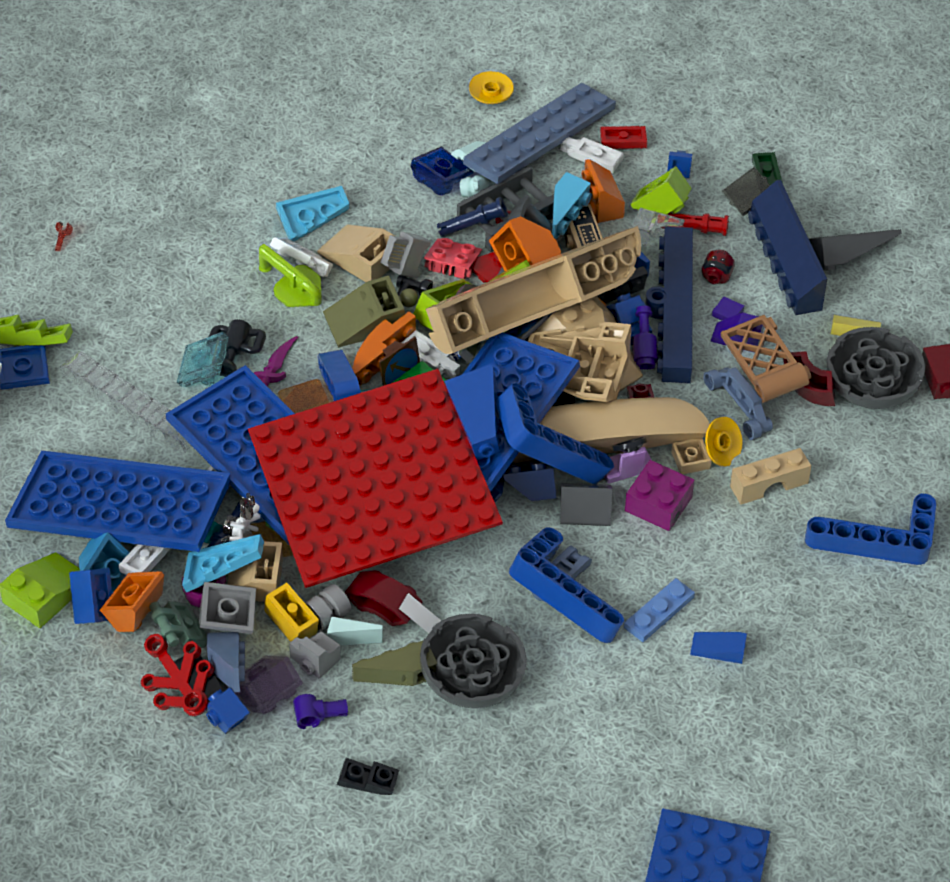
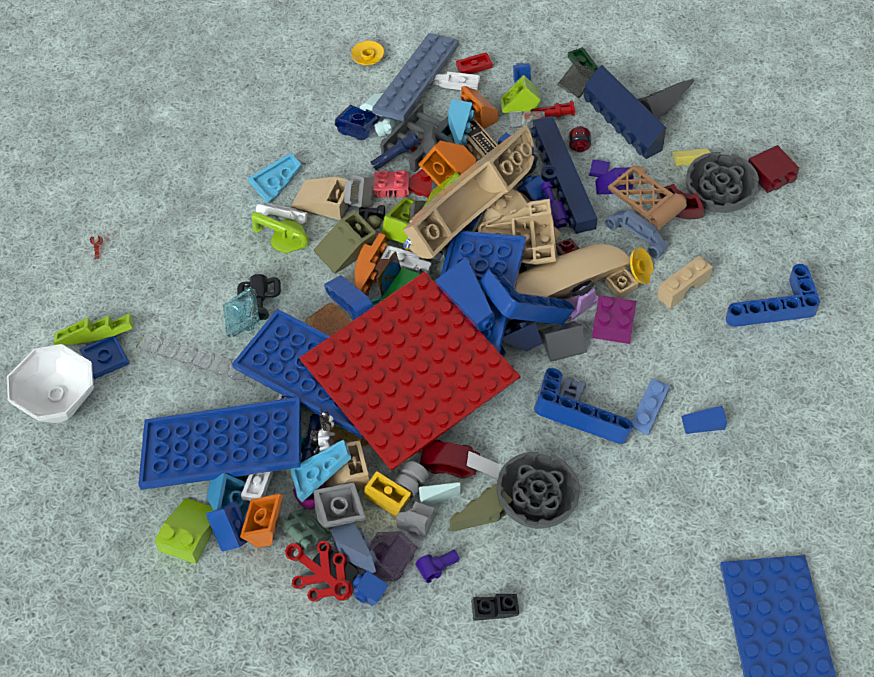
camera: 15 degrees left, 5 degrees up
(274, 363) = (293, 299): magenta piece -> none

